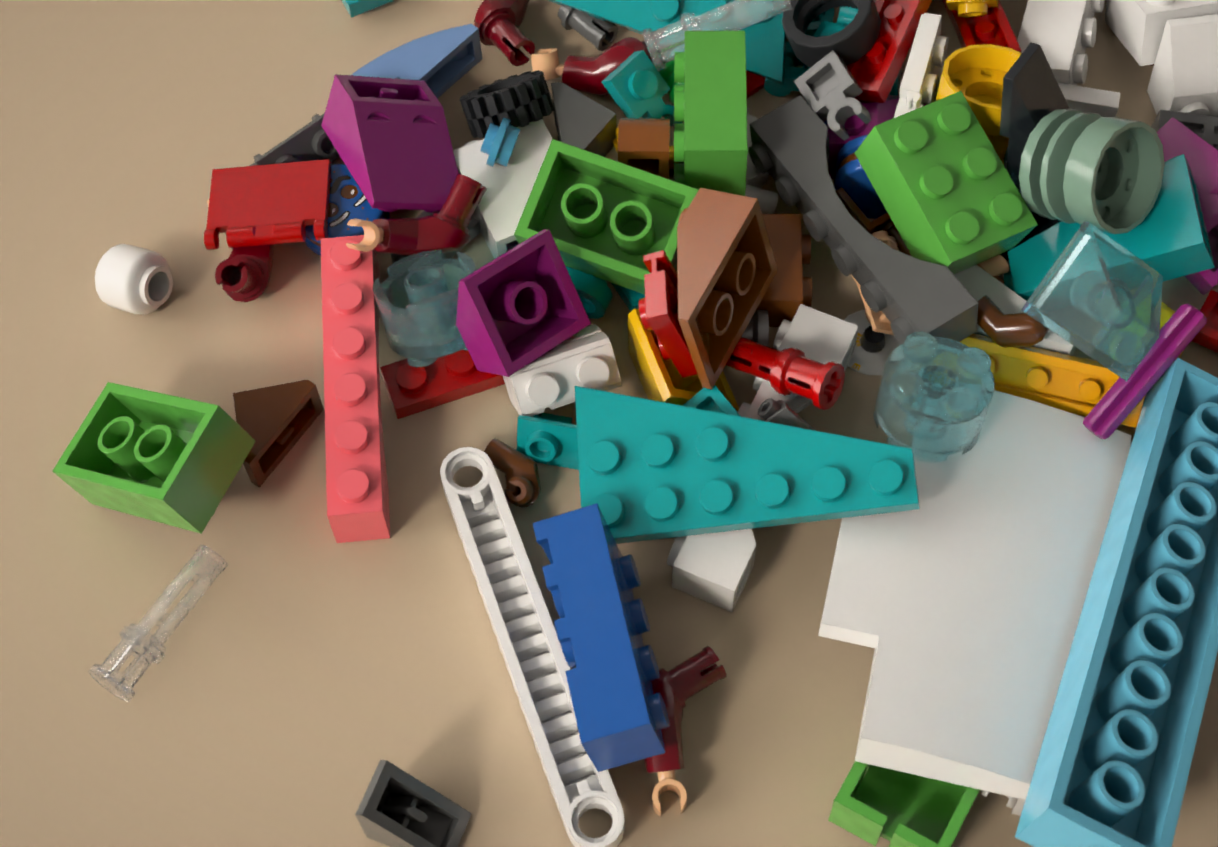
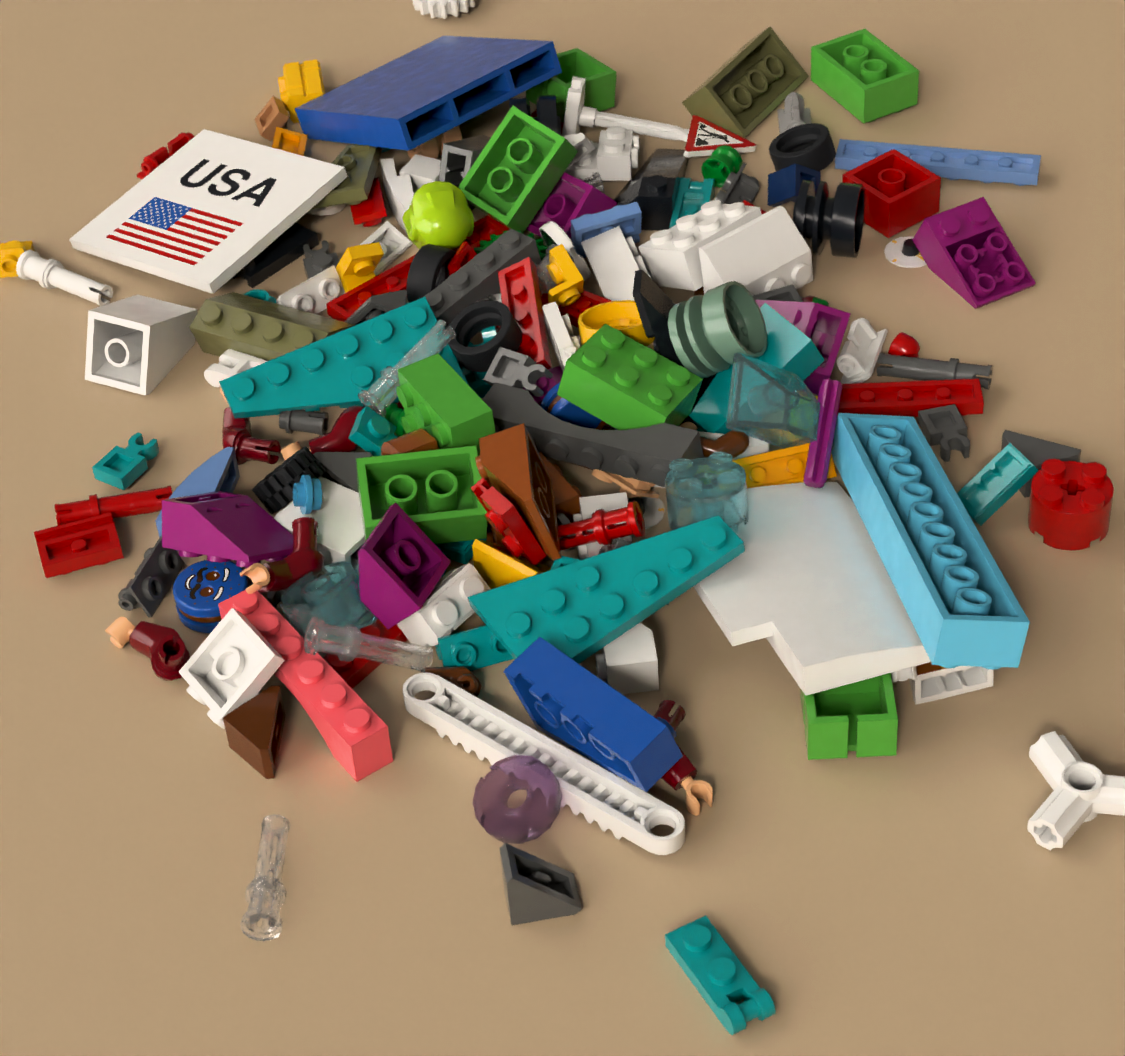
camera: 30 degrees left, 20 degrees down
(133, 279) = (85, 698): white head -> none
(155, 456) = (196, 772): bright green brick -> none
(257, 68) = (78, 545): none -> red plate
(268, 203) = (159, 606): red piece -> none
(281, 330) = (230, 666): none -> white plate
(307, 32) = (119, 505): none -> red pin
(416, 374) = (349, 643): none -> clear pin
(495, 691) = (529, 819): none -> tile

